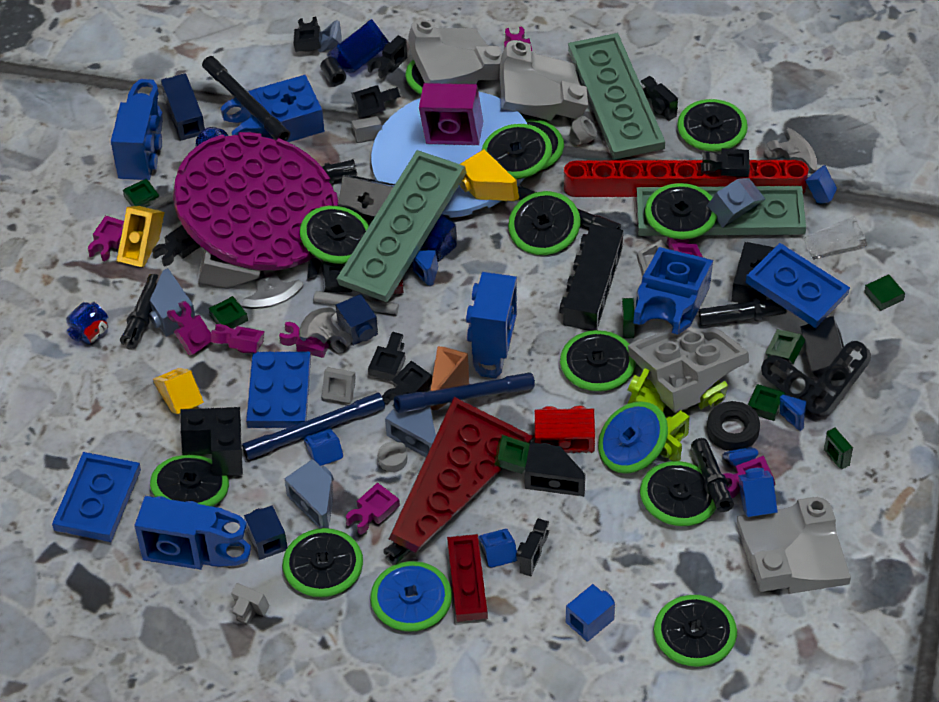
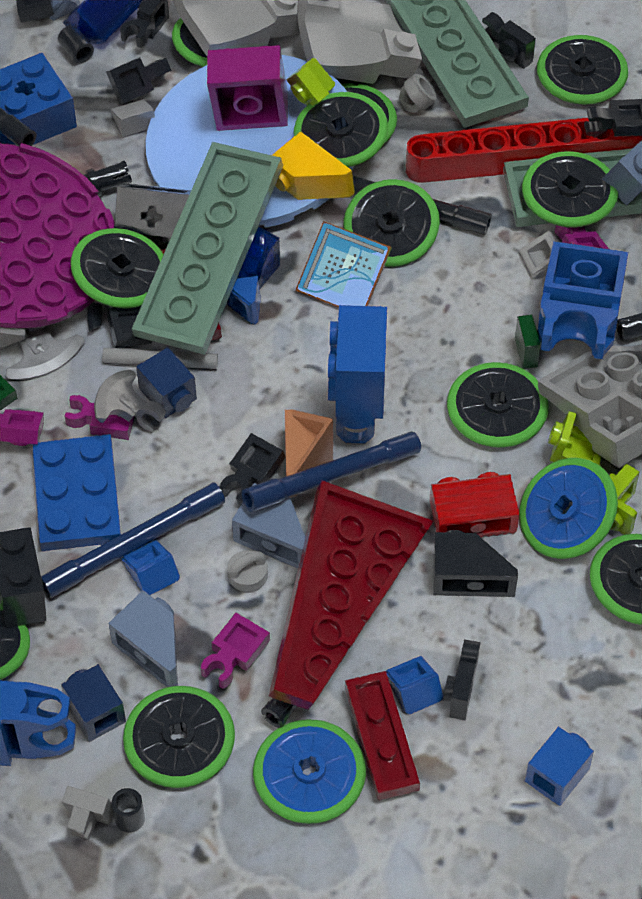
camera: 10 degrees left, 5 degrees up
(277, 606) = (127, 799): none -> black hinge
(338, 384) = (158, 477): light grey tile -> none
(388, 361) = (219, 435): black plate -> none
(499, 114) = (310, 83): none -> lime bracket
(501, 249) = (343, 267): none -> piece
(511, 454) = (411, 551): dark green tile -> none
(592, 277) = (470, 291): black brick -> none

